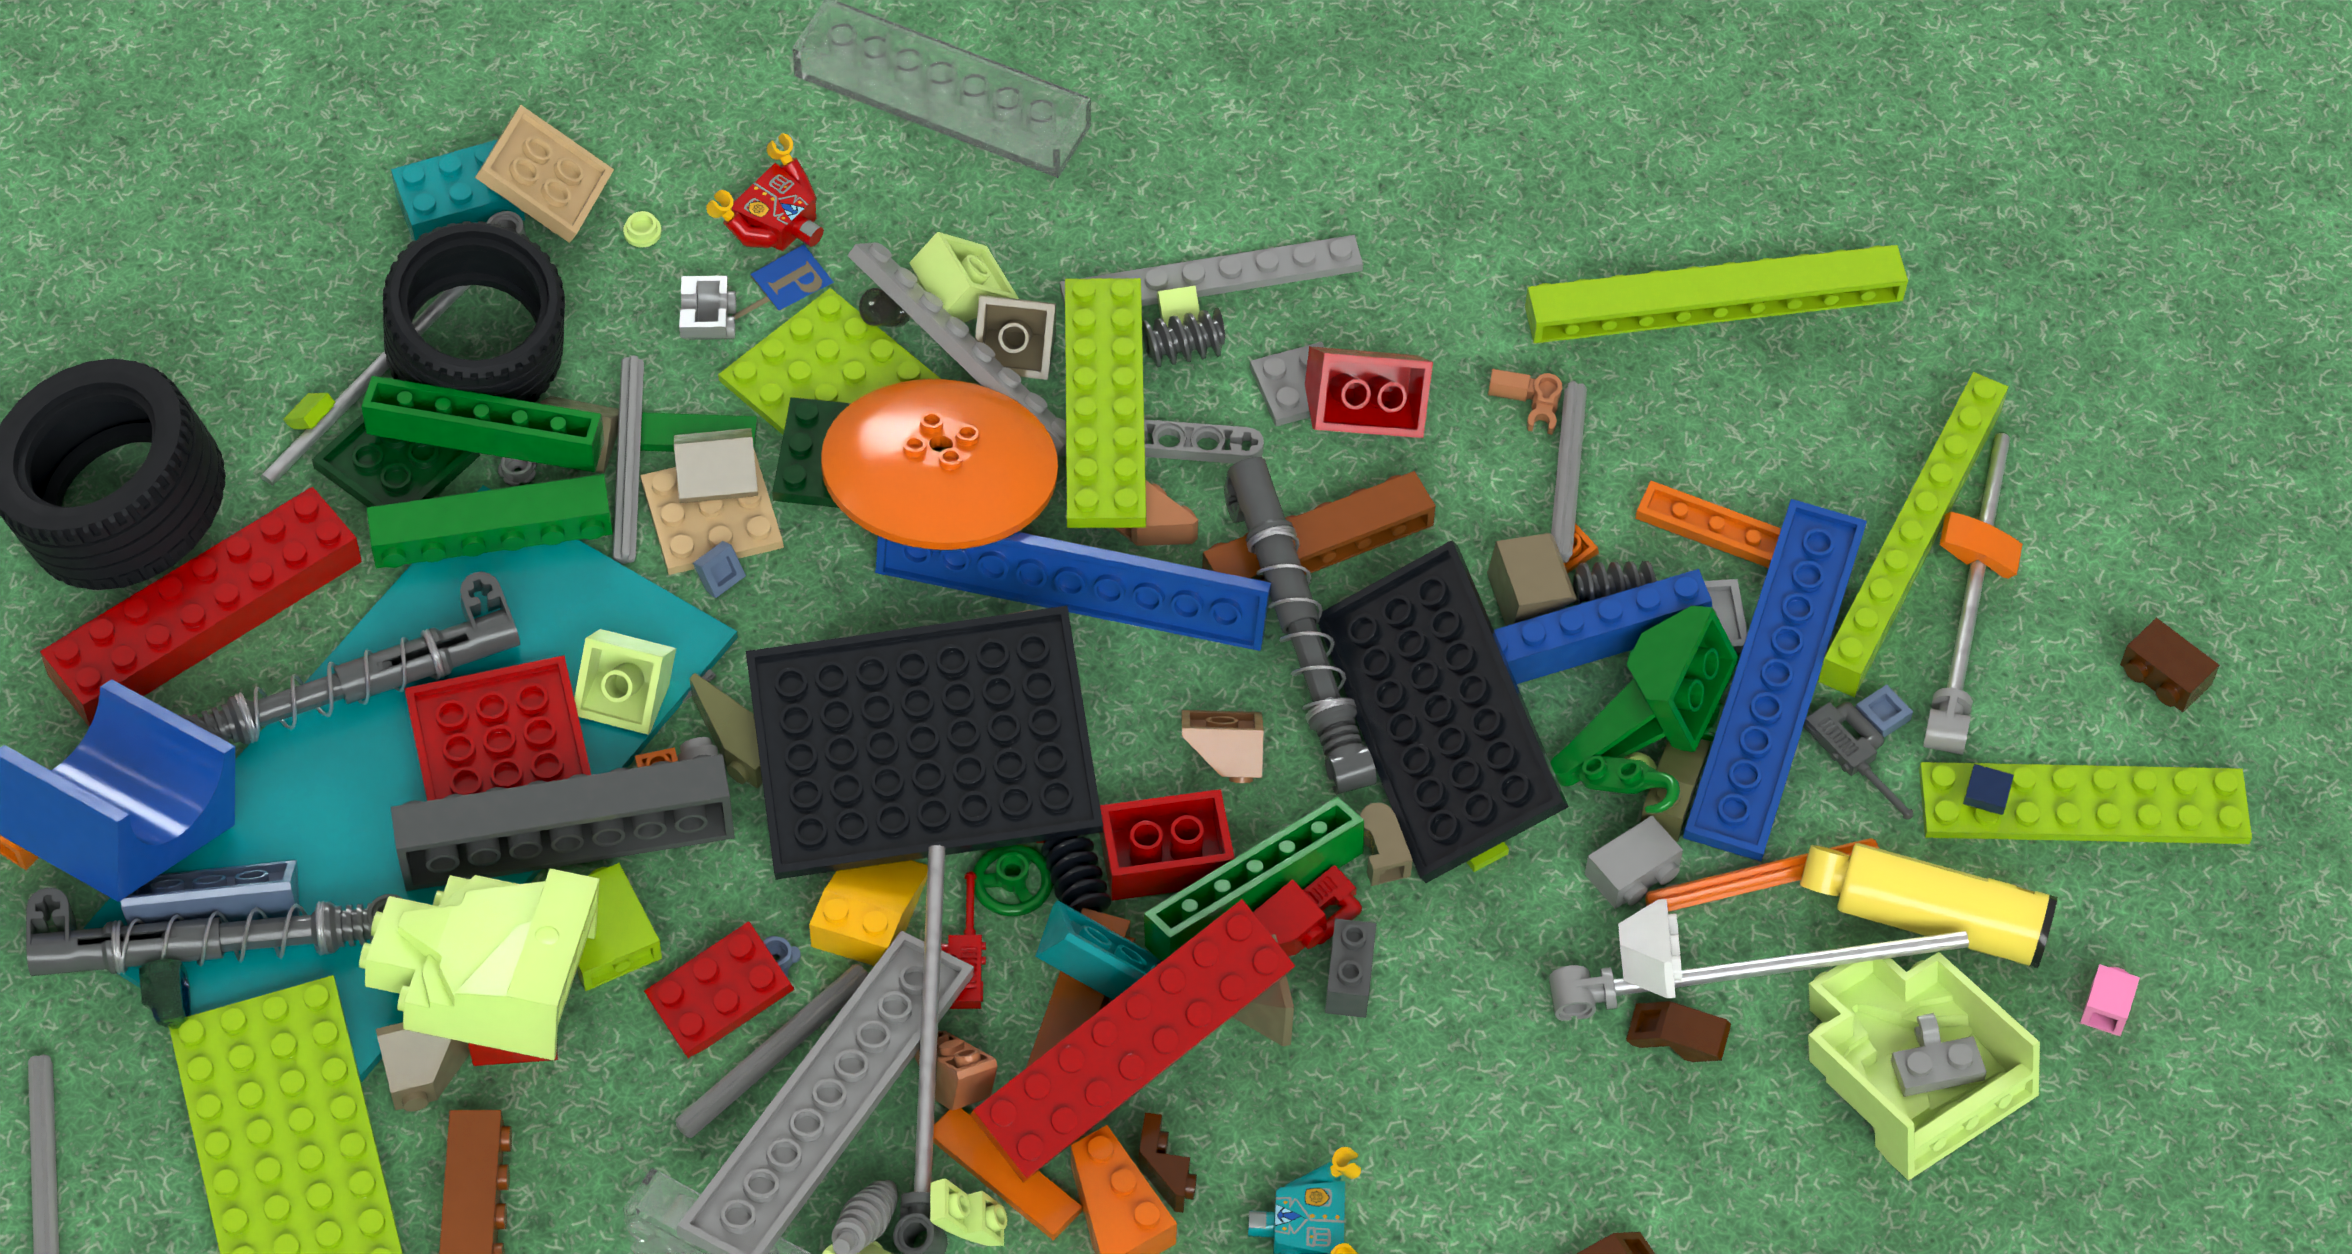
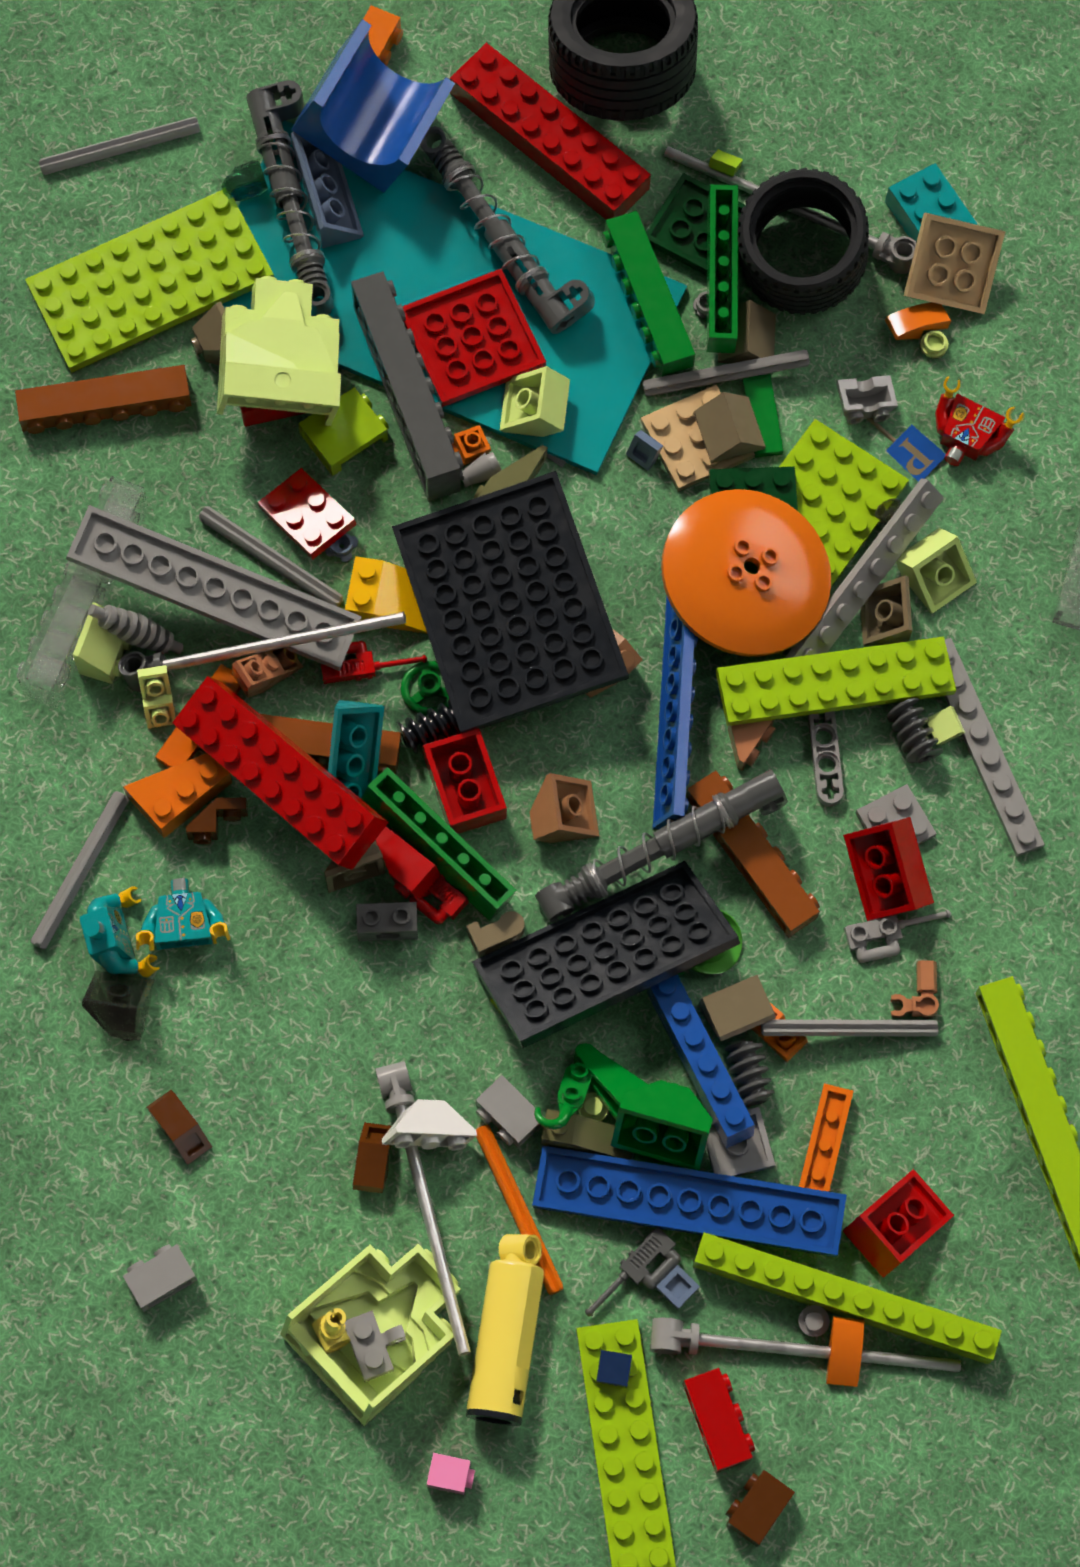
camera: 80 degrees right, 15 degrees up
(606, 239) = (912, 321): none -> orange slope
(1441, 444) = (886, 928): none -> light grey piece
(1826, 464) = (898, 1223): none -> red slope
(1921, 1094) = (331, 1330): none -> light yellow pin
(1937, 574) = (813, 1320): none -> light grey plate
(2057, 692) = (718, 1419): none -> red brick

